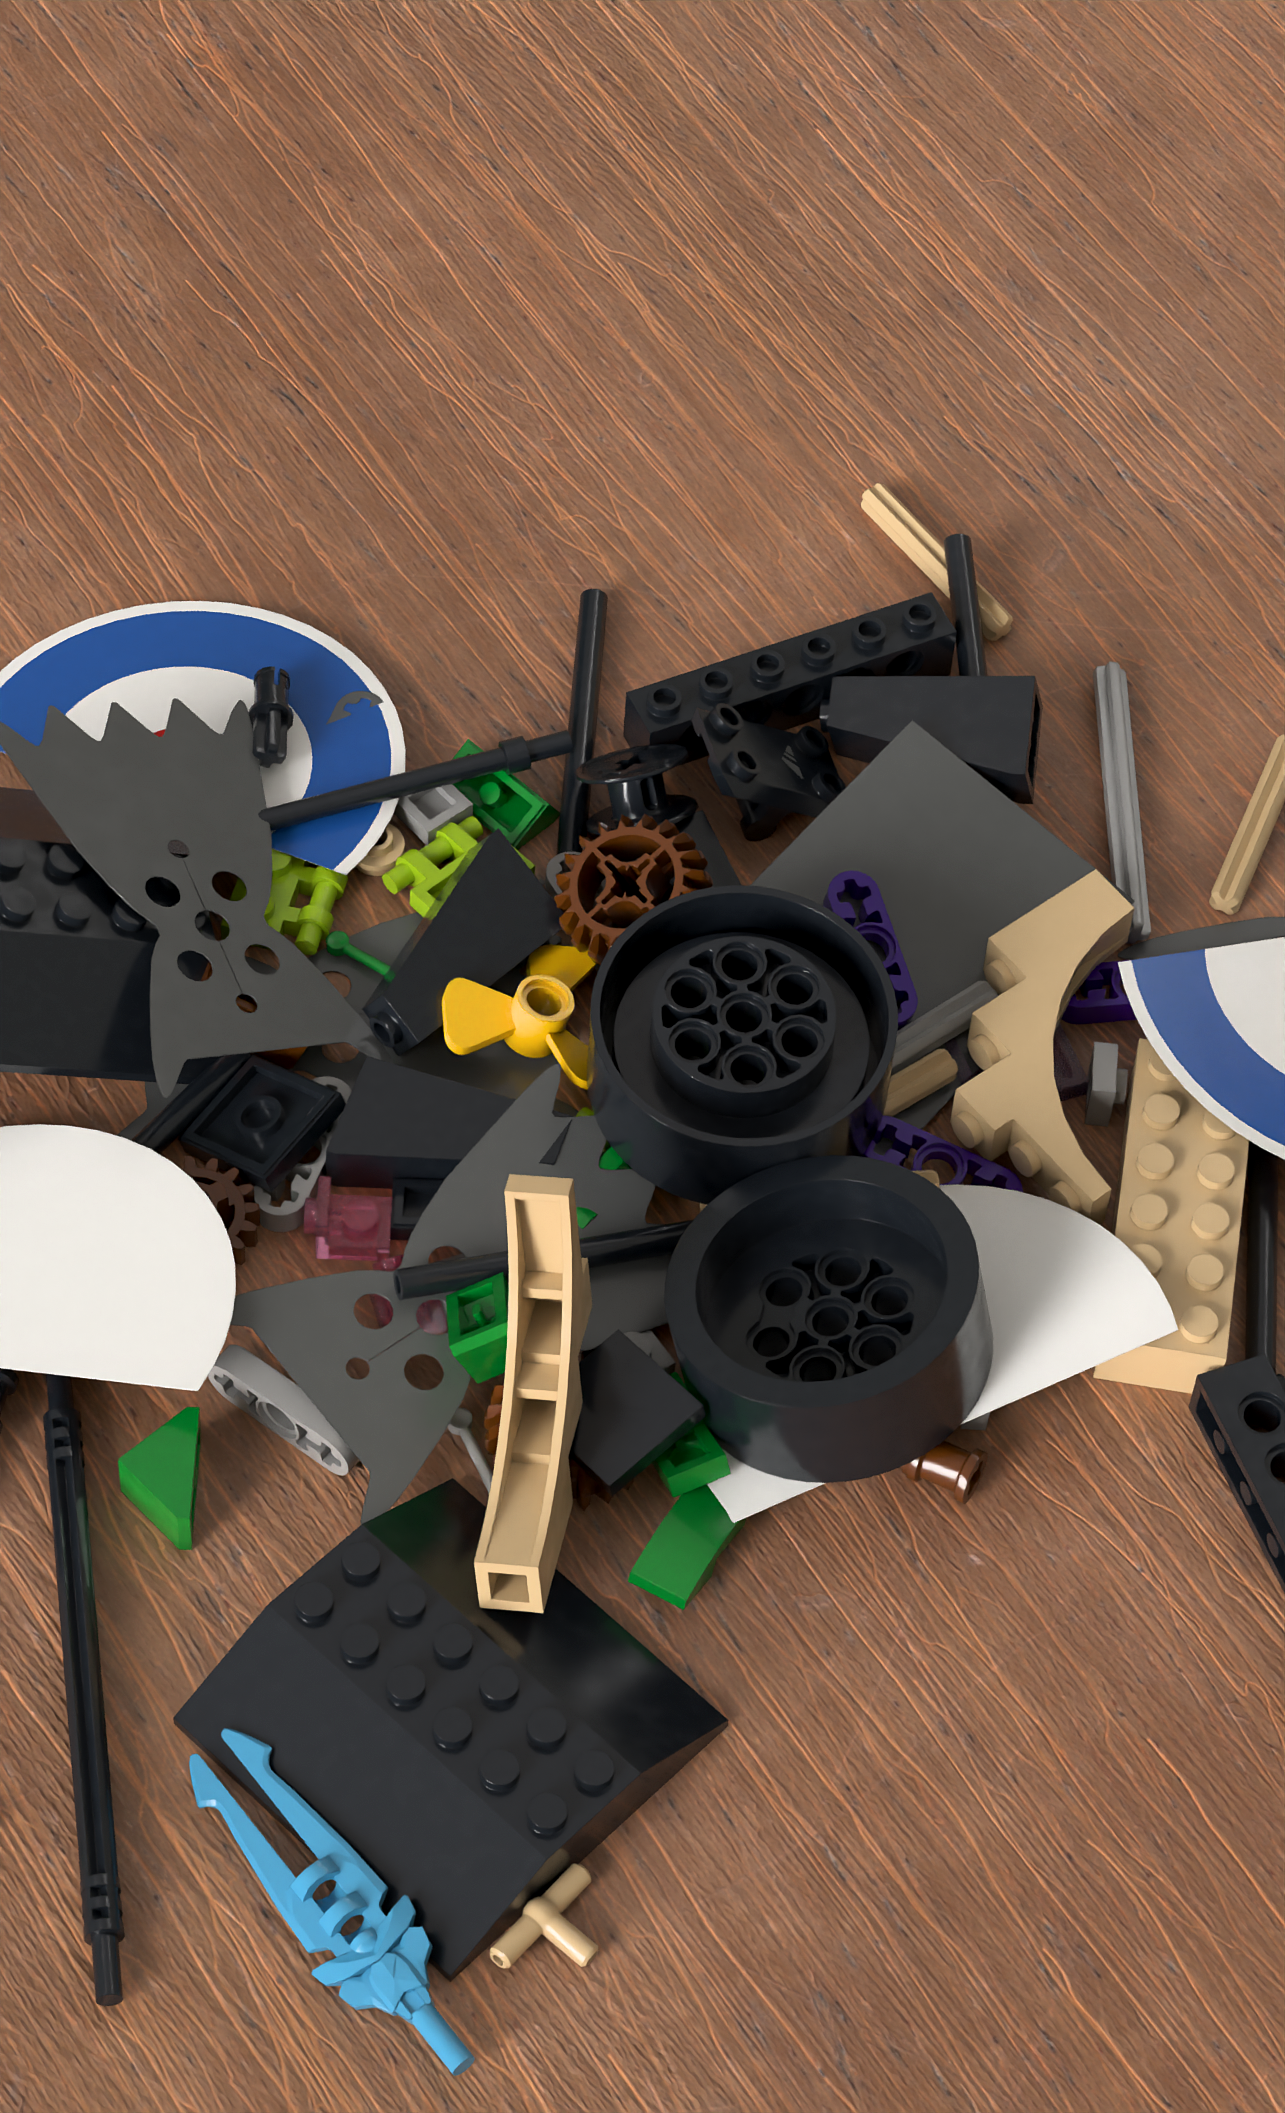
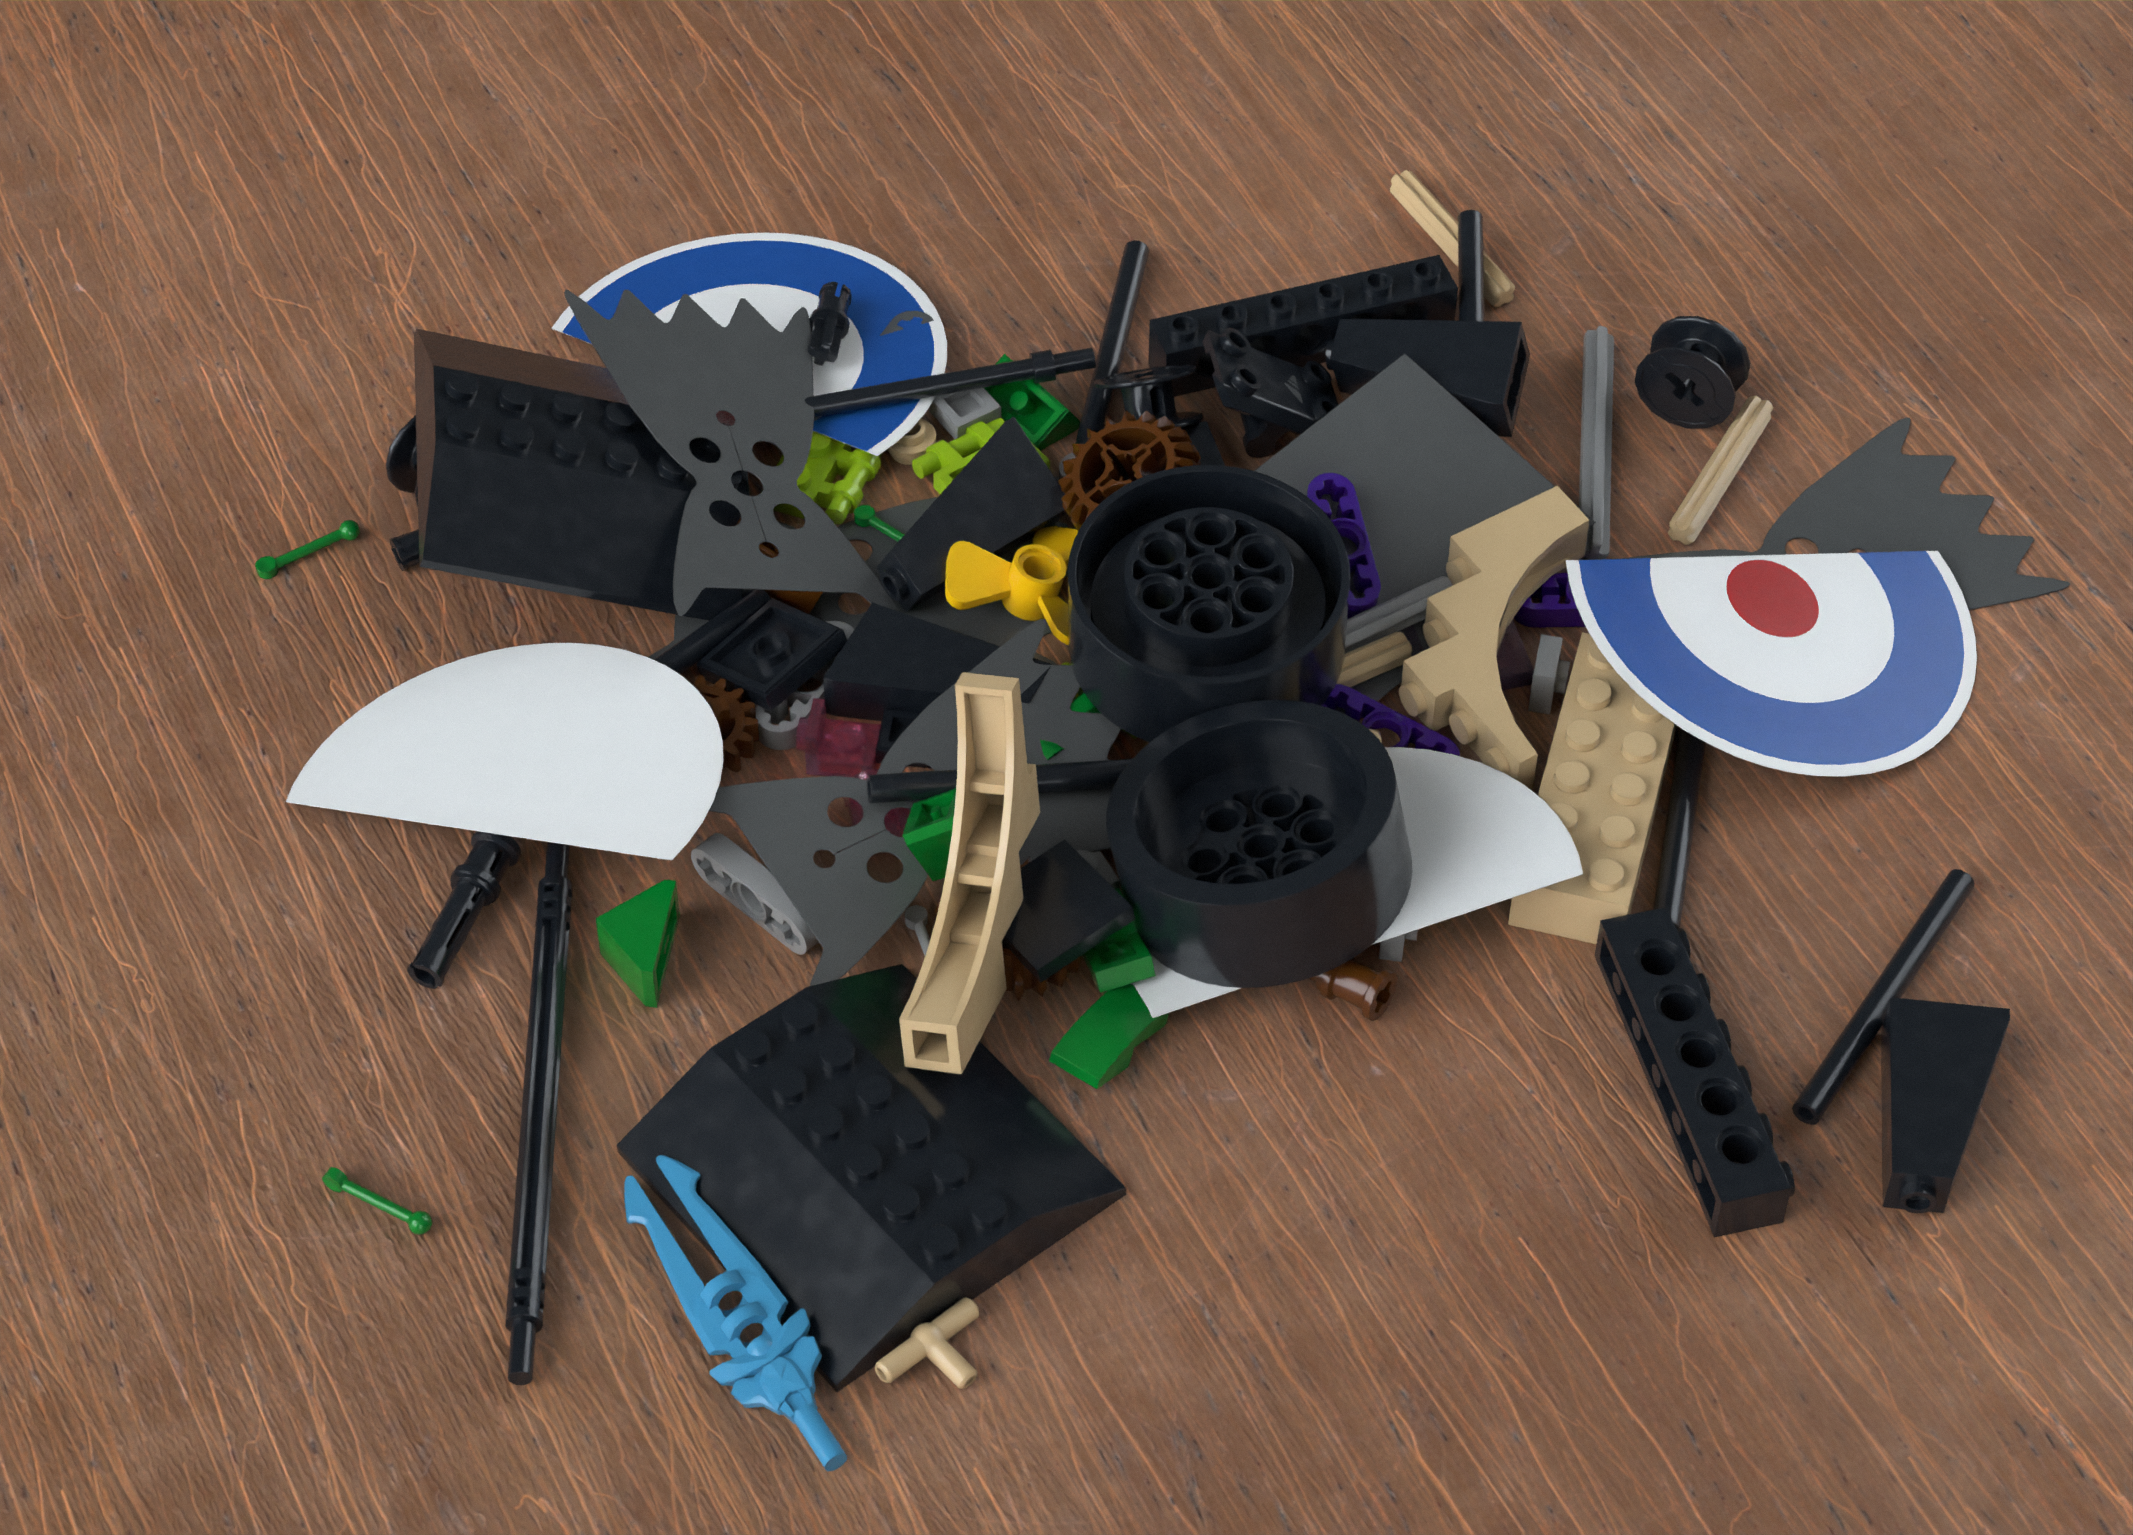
camera: 10 degrees right, 5 degrees down
(1241, 713) = (1692, 372): none -> black piece

